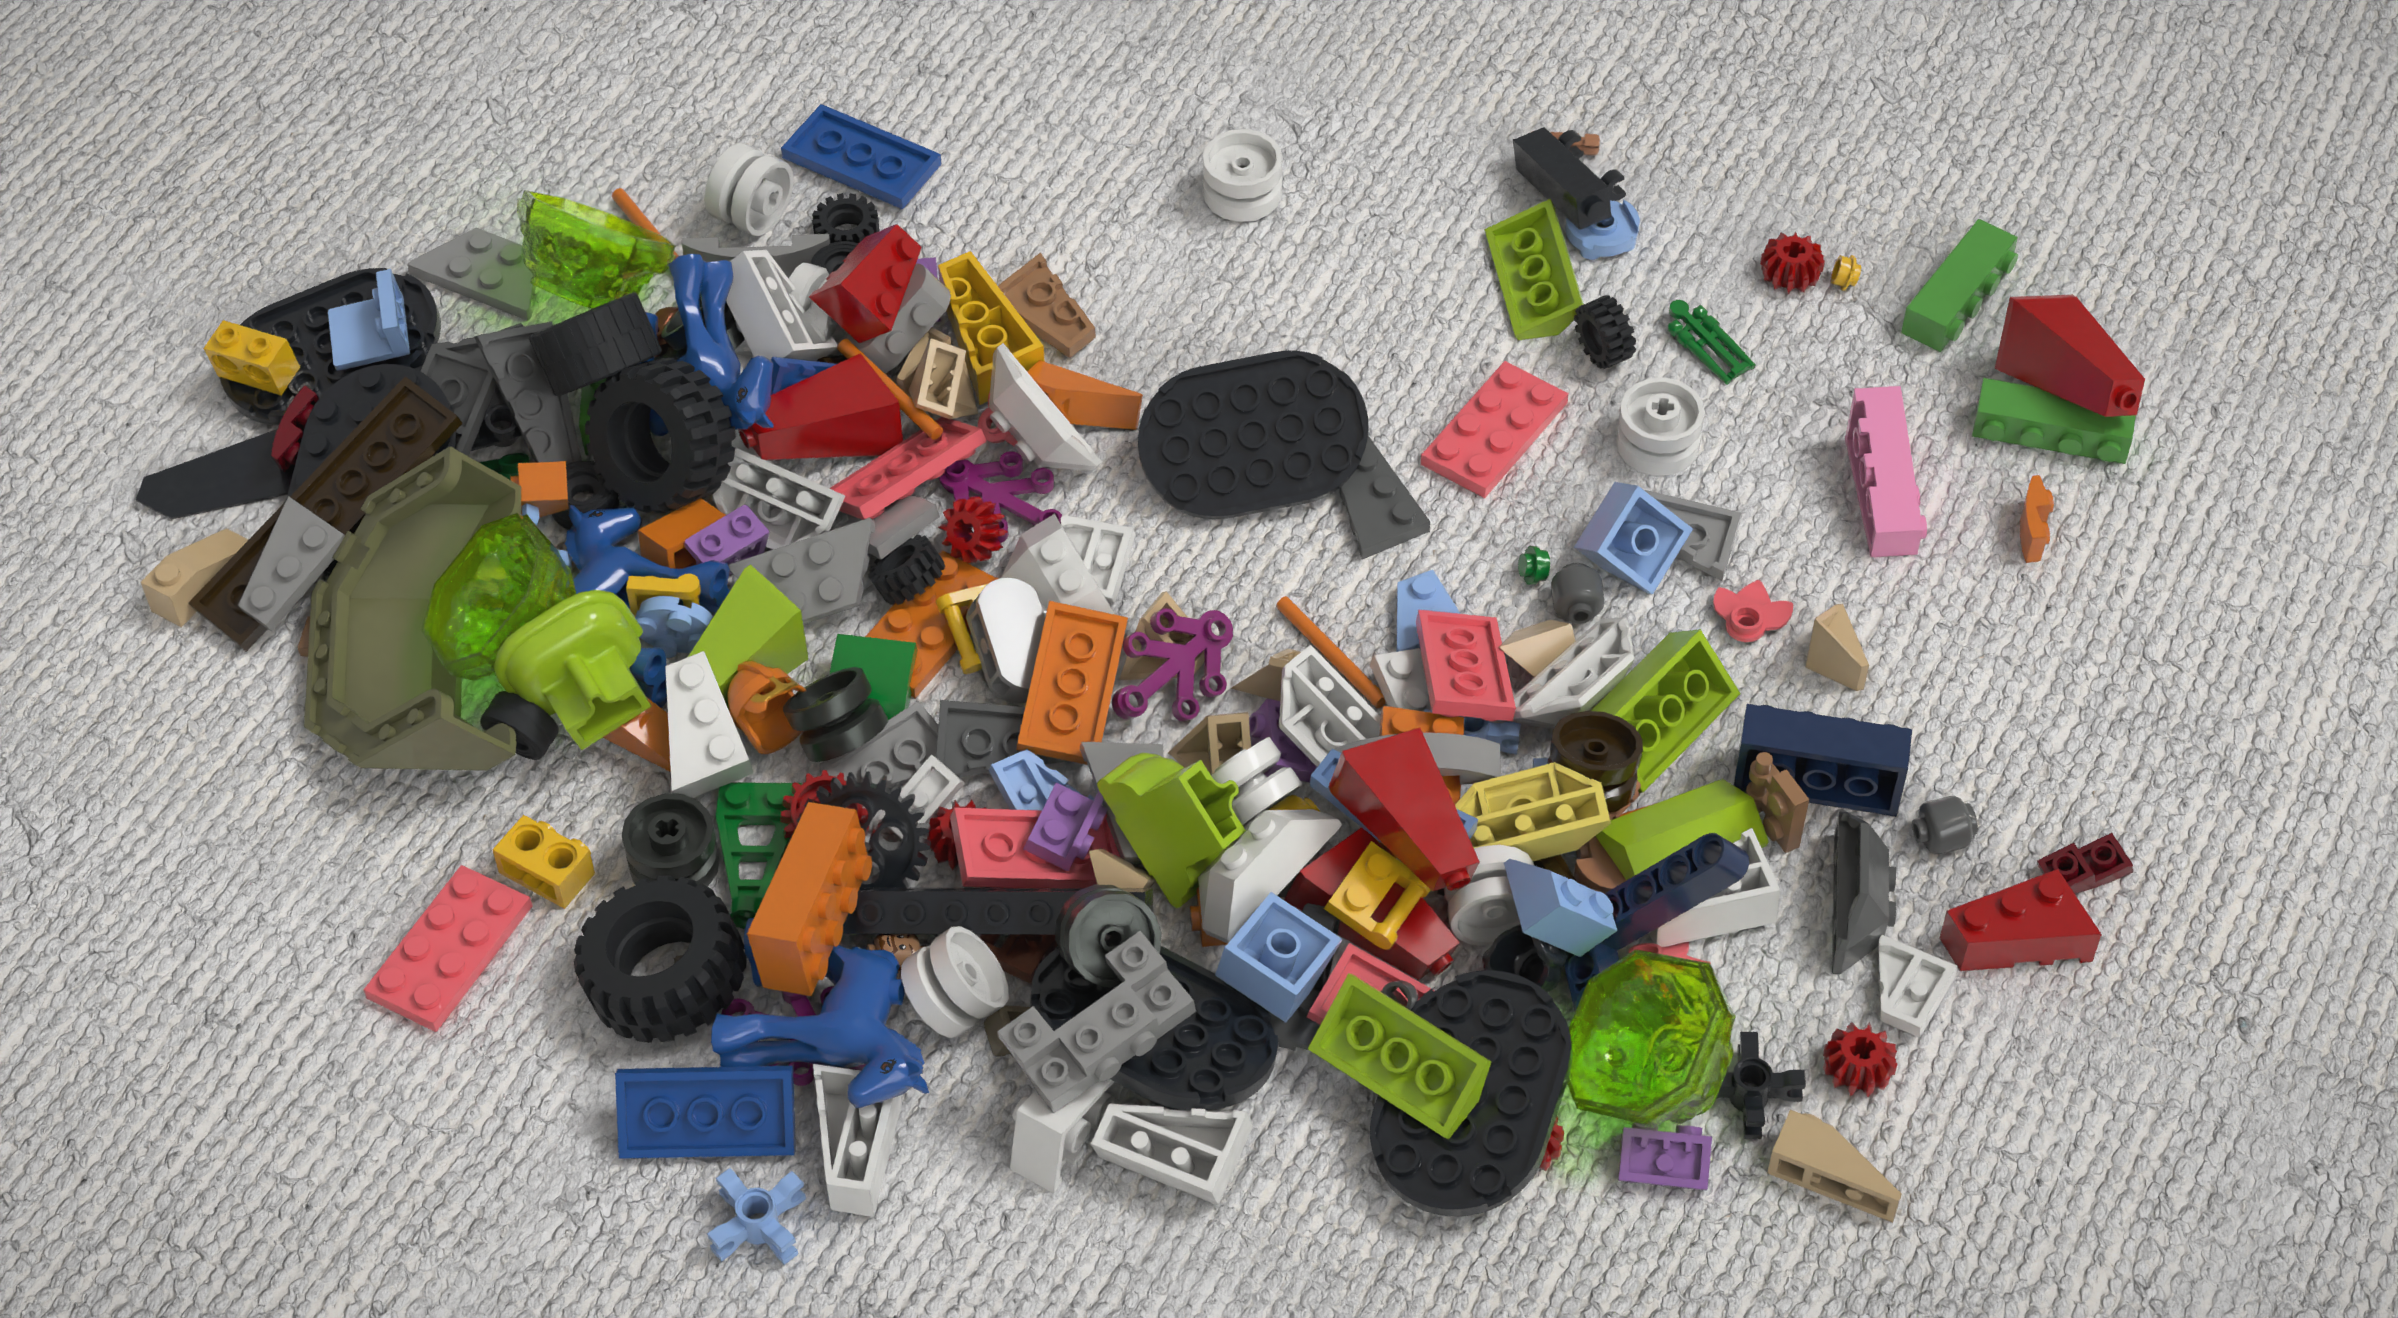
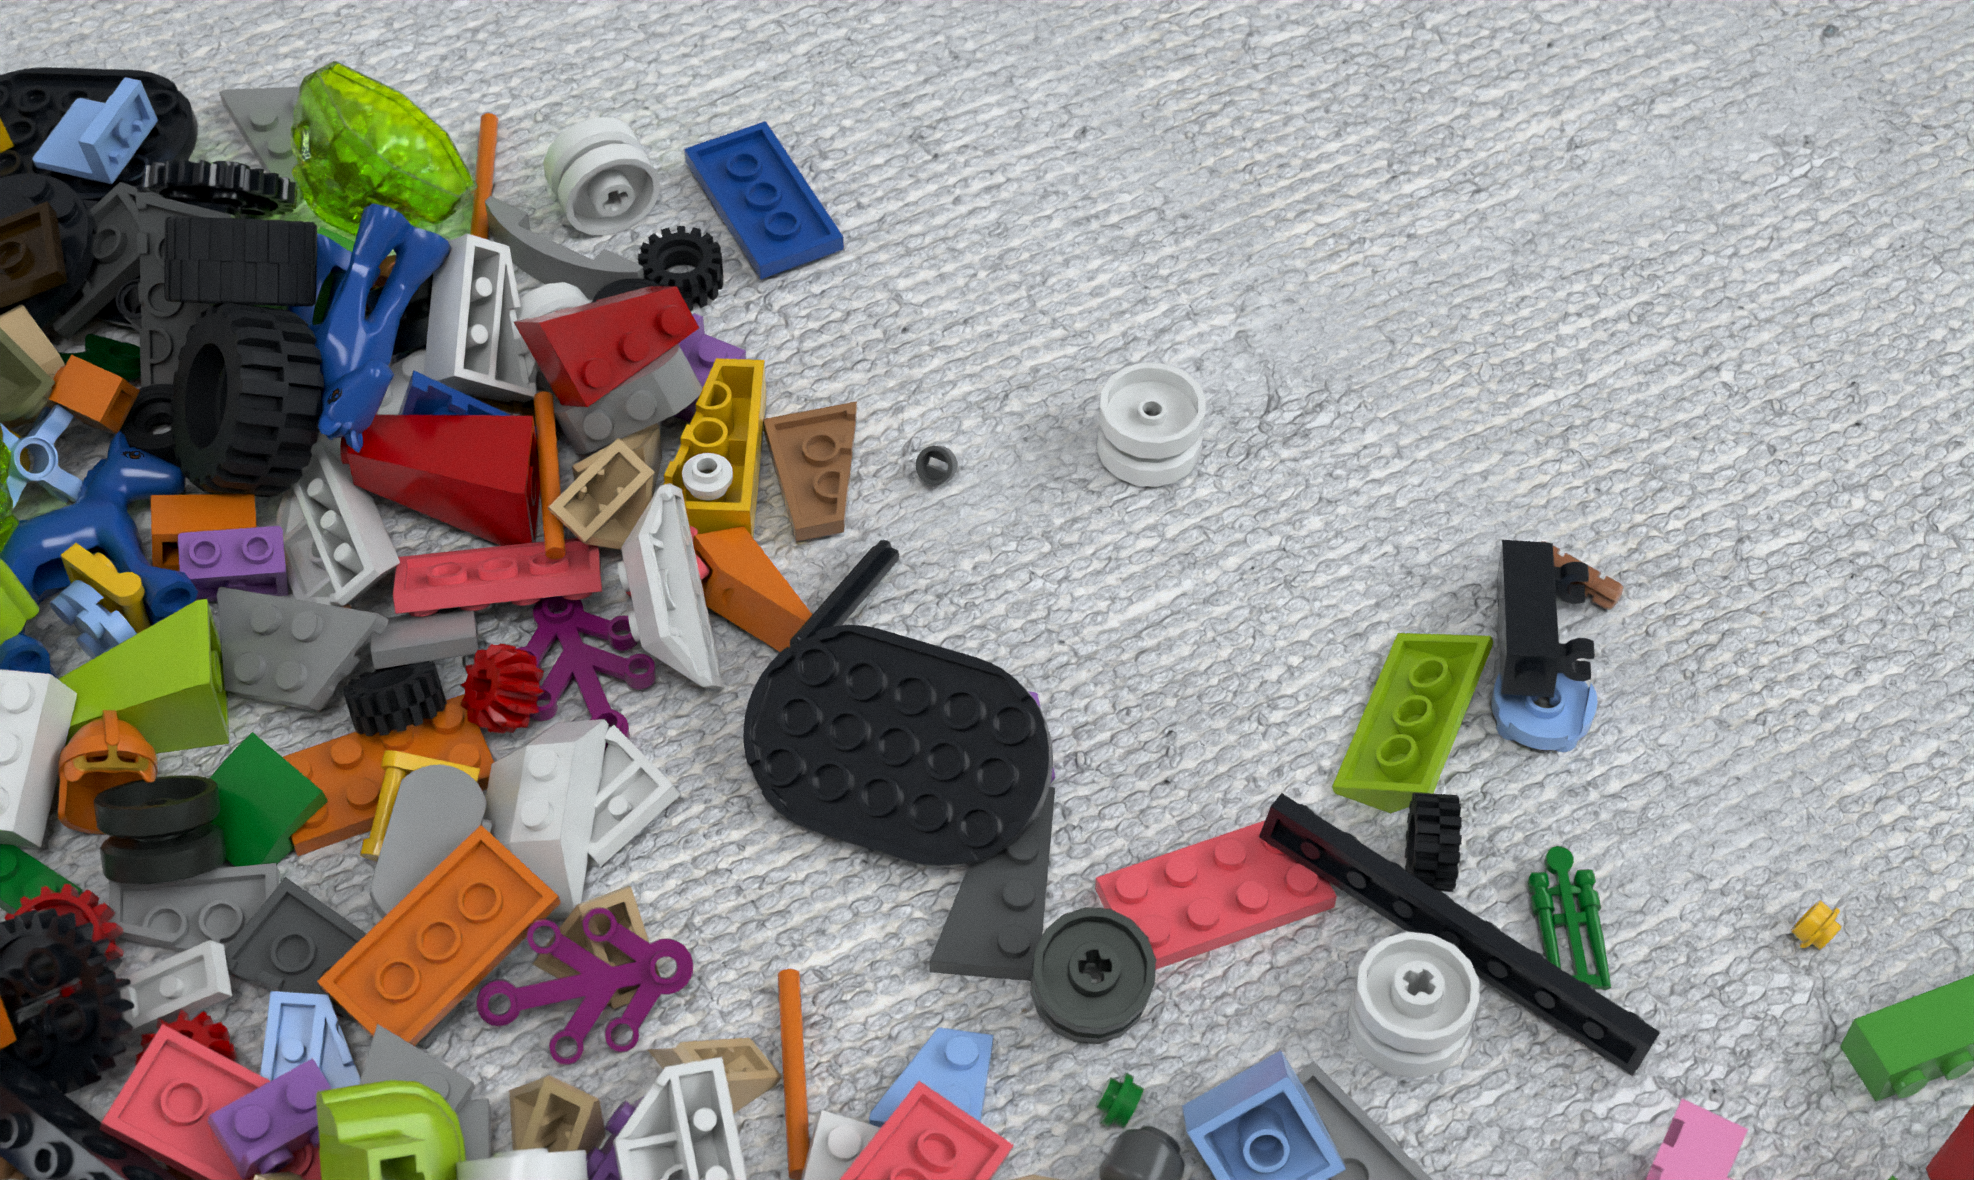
camera: 30 degrees right, 0 degrees up
(508, 308) = (222, 182): none -> black gear
(1001, 332) = (710, 485): none -> white plate
(1123, 275) = (932, 474): none -> dark grey hinge
(1140, 367) = (850, 591): none -> black axle
(1471, 502) = (1099, 943): none -> pearl dark grey wheel
(1622, 370) = (1494, 955): none -> black plate
(1792, 262) = (1752, 876): red gear -> none

